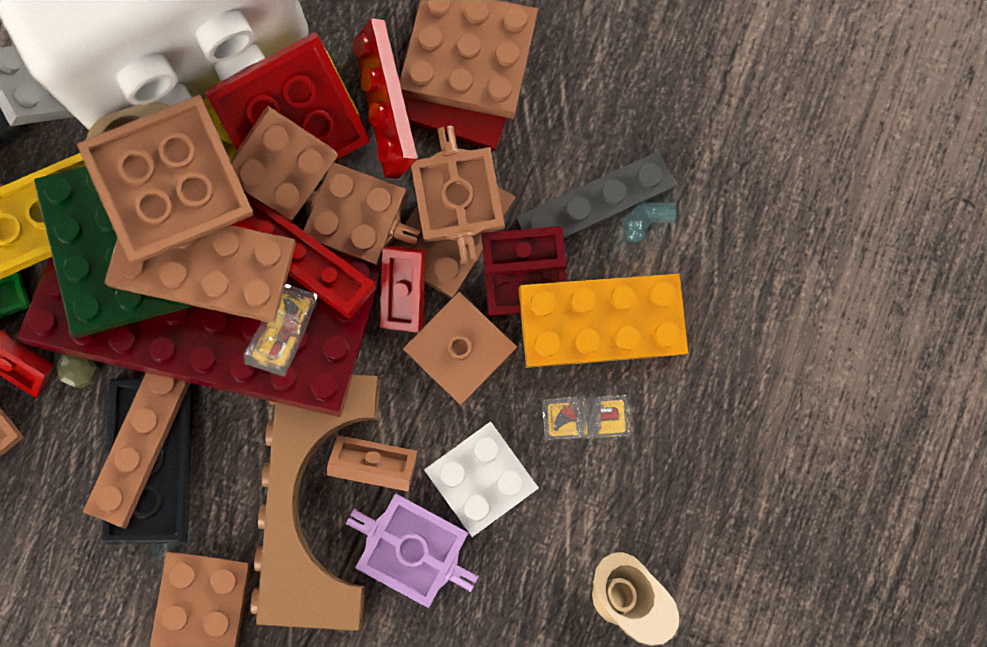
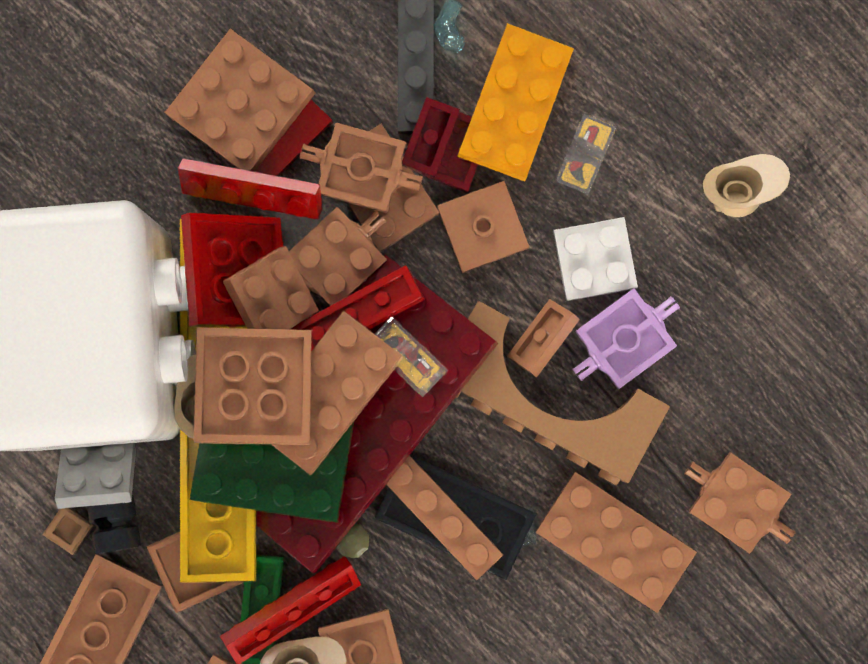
camera: 65 degrees left, 5 degrees up
(402, 288) = (415, 248): plate -> none

